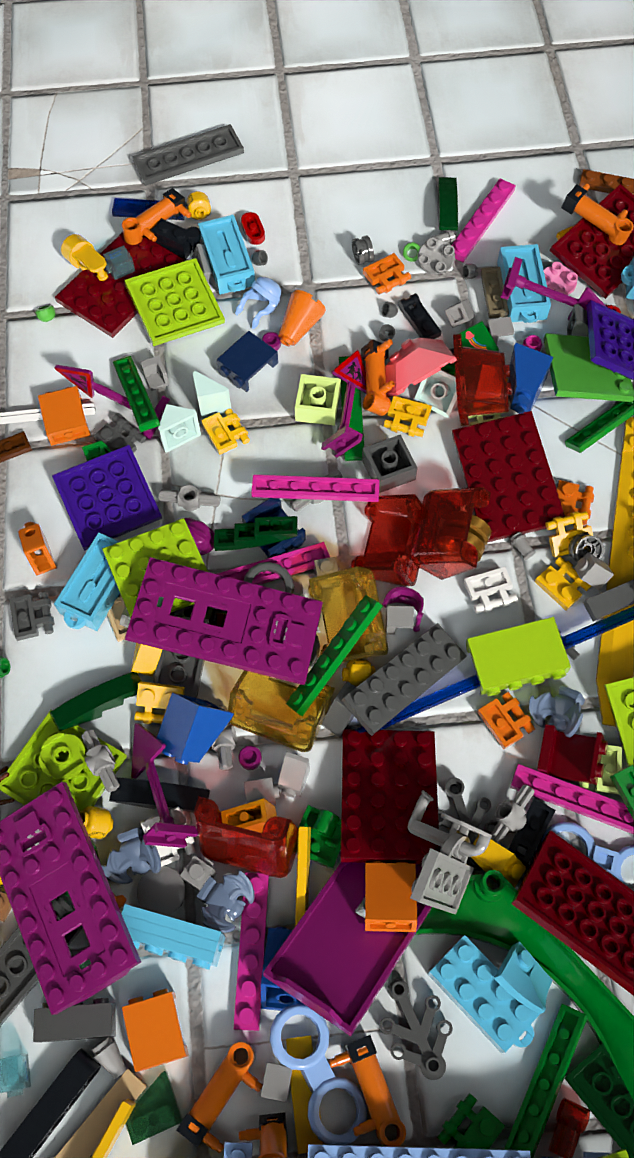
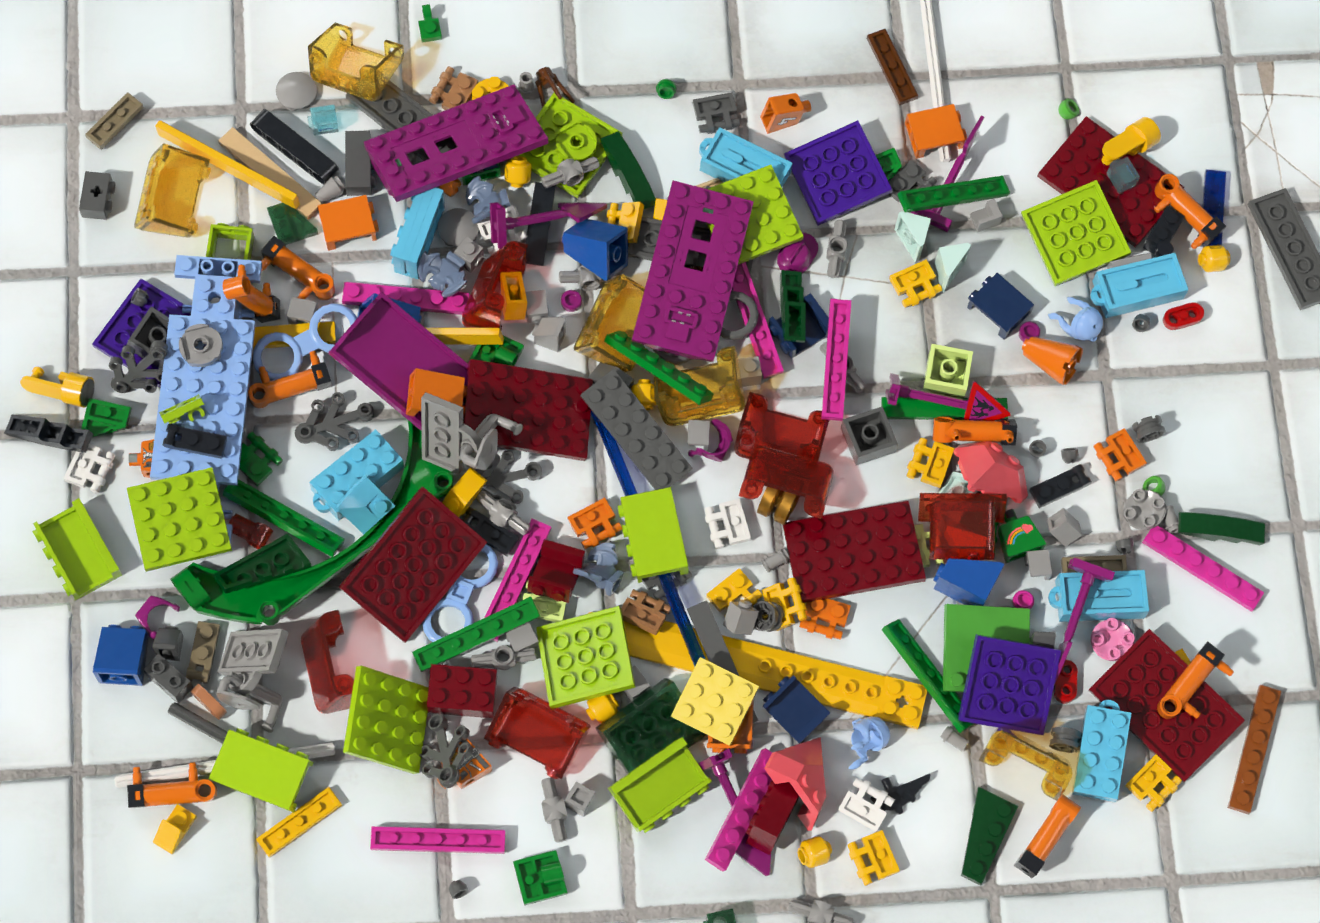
camera: 85 degrees right, 5 degrees up
(604, 666) = (643, 616): none -> medium nougat plate

